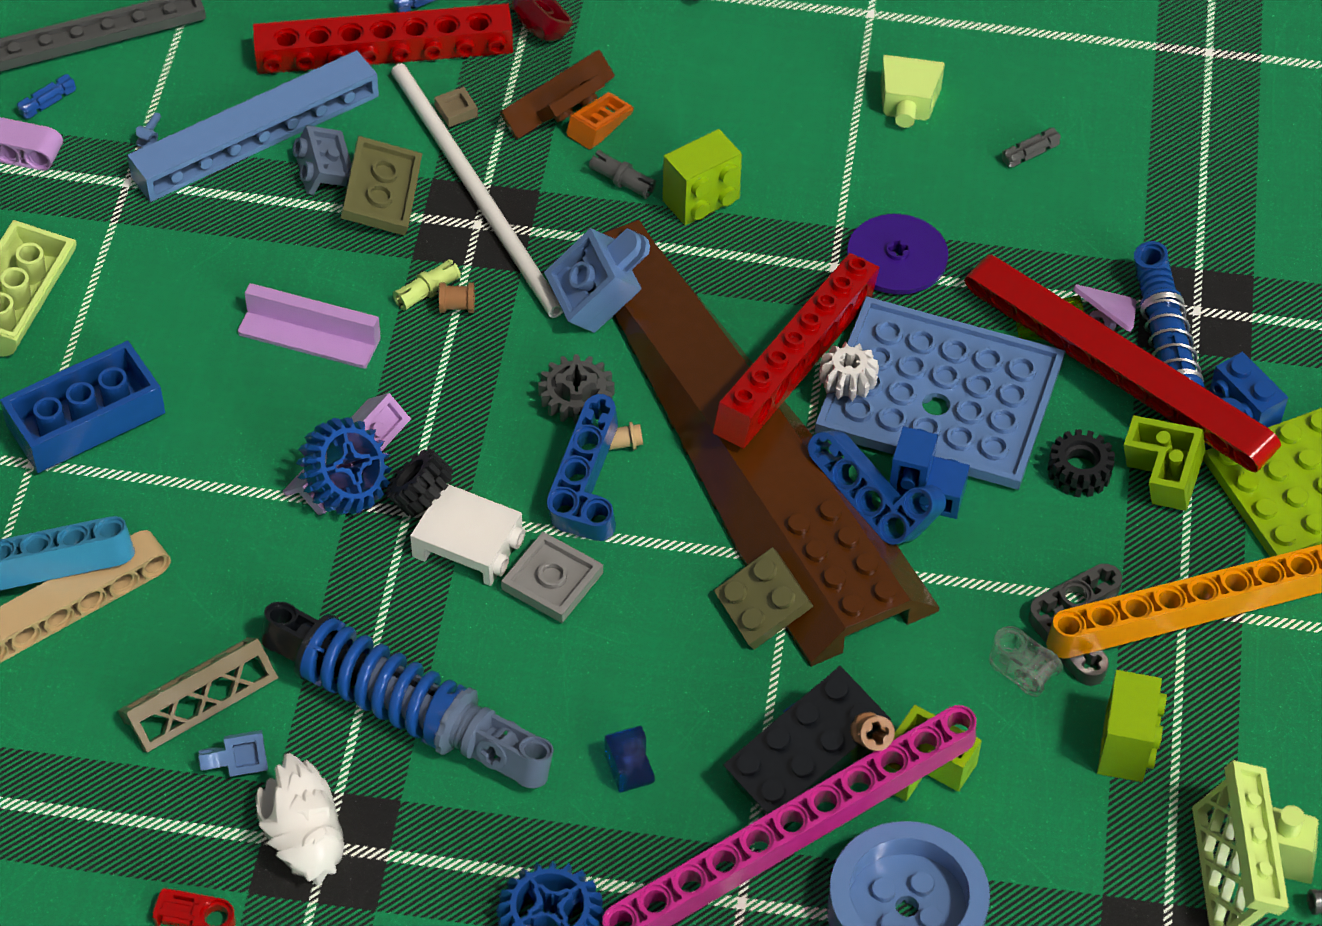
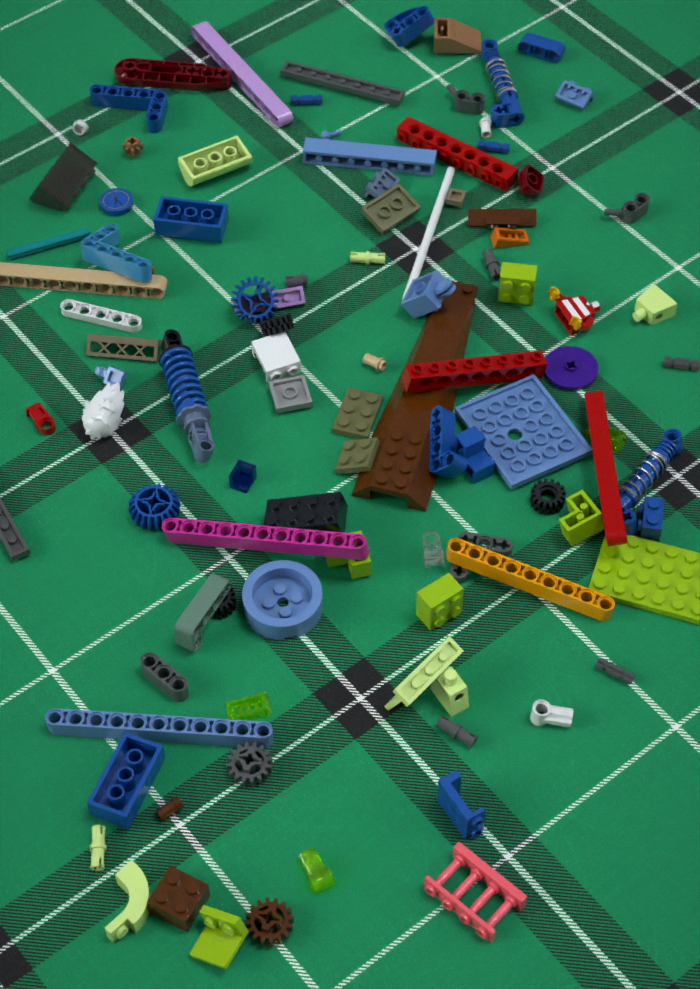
camera: 45 degrees right, 0 degrees up
(86, 683) = (106, 321): none -> white beam
(310, 326) = (306, 245): lavender panel -> none
(360, 392) = (299, 280): none -> dark grey pin
(456, 297) = (372, 269): medium nougat bush -> none
(559, 384) = (377, 332): dark grey gear -> none
(589, 464) = (343, 360): blue beam -> none
(682, 535) = (357, 414): none -> olive plate
(818, 168) = (574, 312): none -> red torso
(848, 371) = (486, 394): white gear -> none
(881, 738) = (316, 524): medium nougat bush -> none
(1111, 307) = (632, 445): lavender piece -> none

